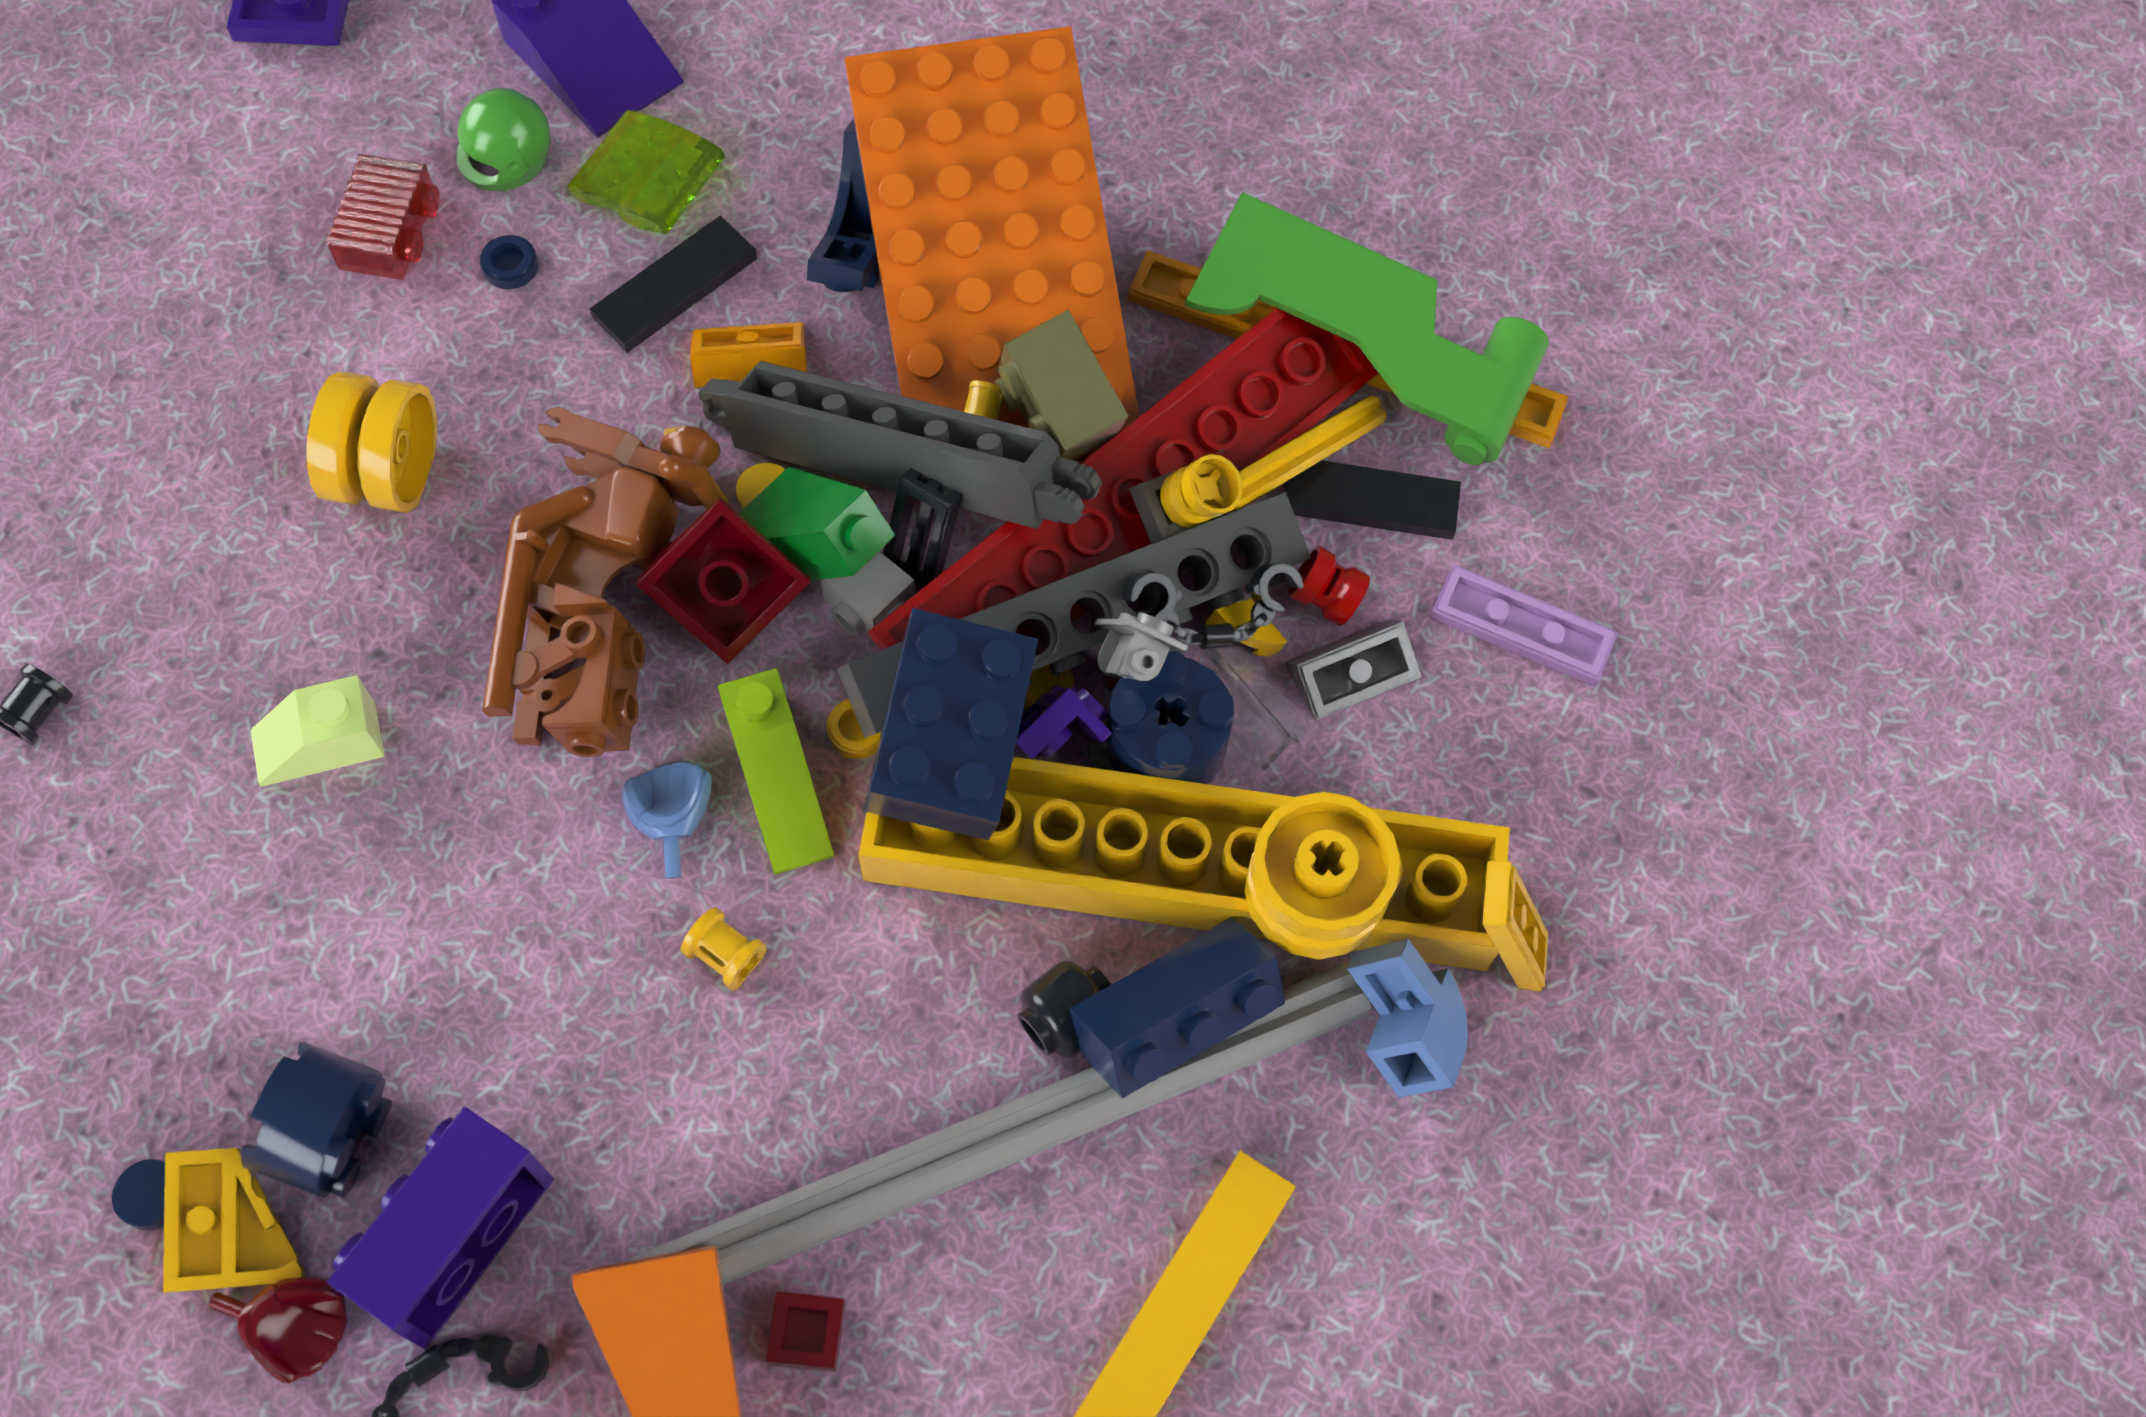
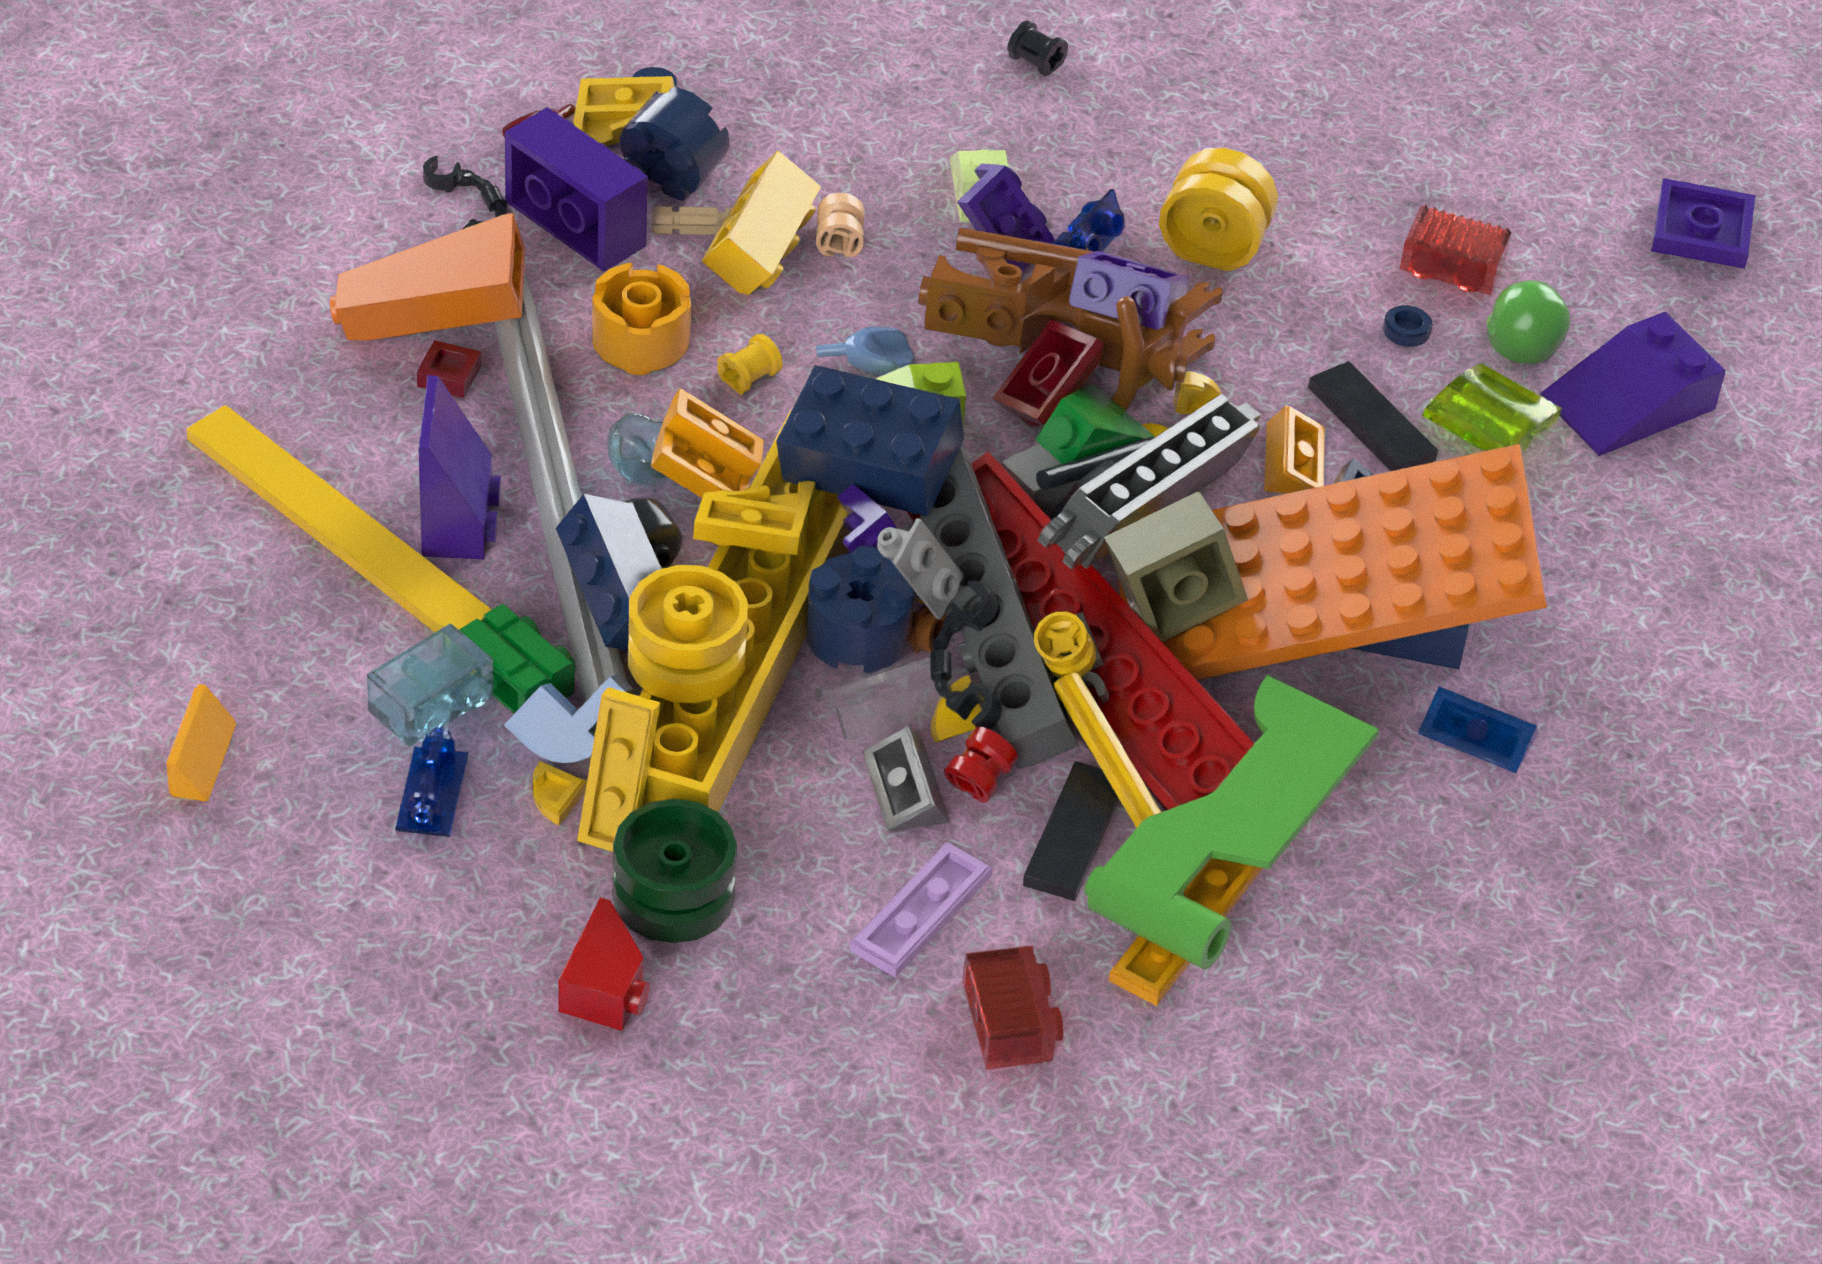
camera: 100 degrees right, 20 degrees down
(380, 593) = (1095, 225): none -> clear blue hinge
(421, 673) = (1002, 208): none -> dark purple bracket
(436, 885) = (840, 225): none -> light nougat wheel
(437, 1066) = (688, 220): none -> tan axle
(461, 976) = (762, 225): none -> yellow brick
(600, 486) = (1106, 278): none -> bracket
(685, 1056) = (641, 318): none -> light orange brick
(899, 519) = (1078, 468): none -> black bar
(913, 961) = (705, 448): none -> light orange slope
(920, 1008) = (632, 446): none -> clear light blue hair
(1073, 1247) = (454, 481): none -> dark purple slope
(1083, 843) = (755, 518): none -> yellow wing
(1121, 157) = (1478, 730): none -> clear blue slope
(1317, 1110) = (520, 657): none -> green brick
(1397, 1197) = (430, 684): none -> clear light blue brick
(1489, 1026) = (556, 791): none -> yellow tile
(1531, 1167) = (432, 786): none -> clear blue hinge
(1594, 858) = (674, 870): none -> dark green wheel
(1637, 517) = (1011, 1006): none -> clear red brick
(1741, 909) = (604, 972): none -> red slope

